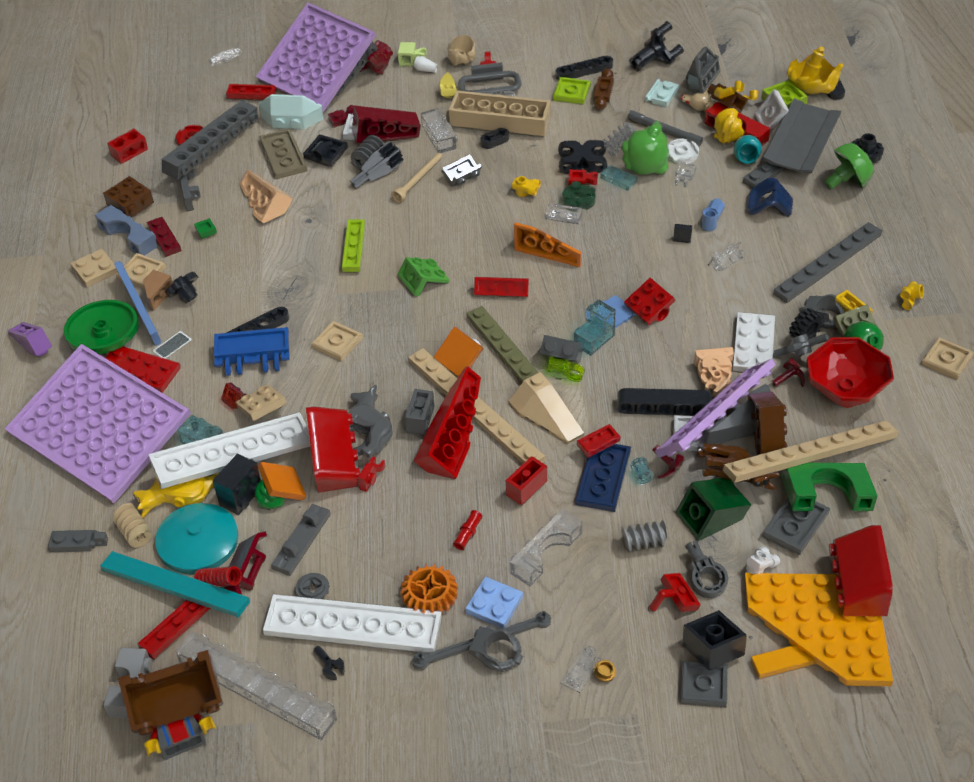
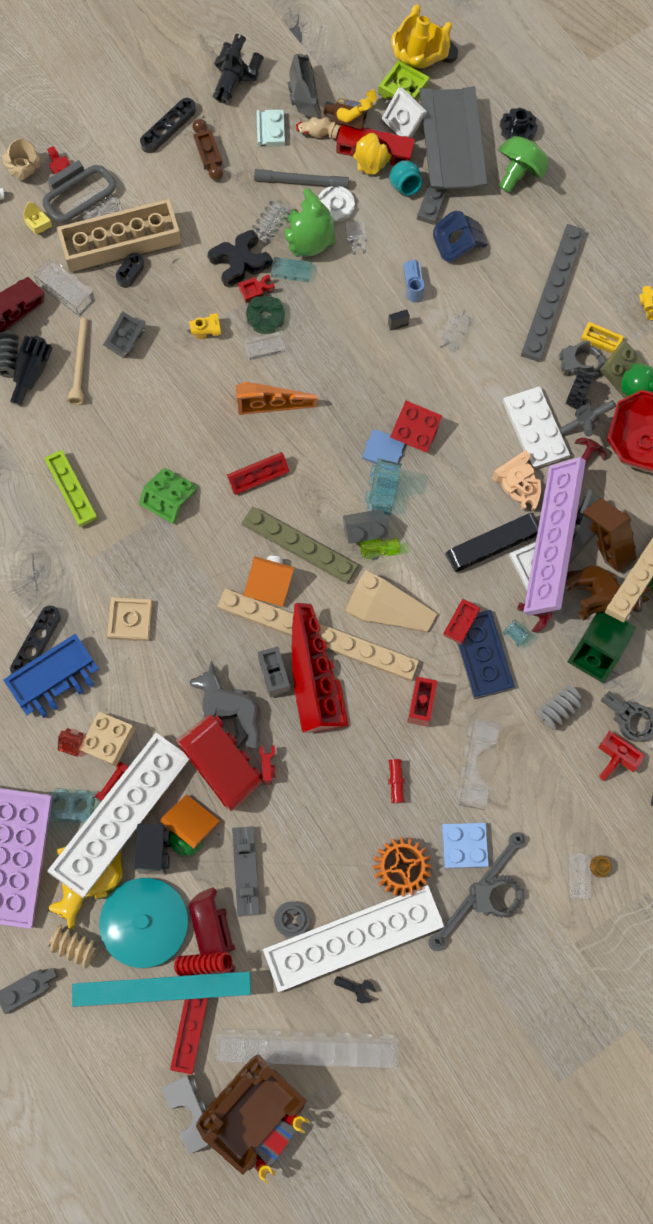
camera: 35 degrees left, 25 degrees up
(572, 90) = (172, 164): lime tile -> none

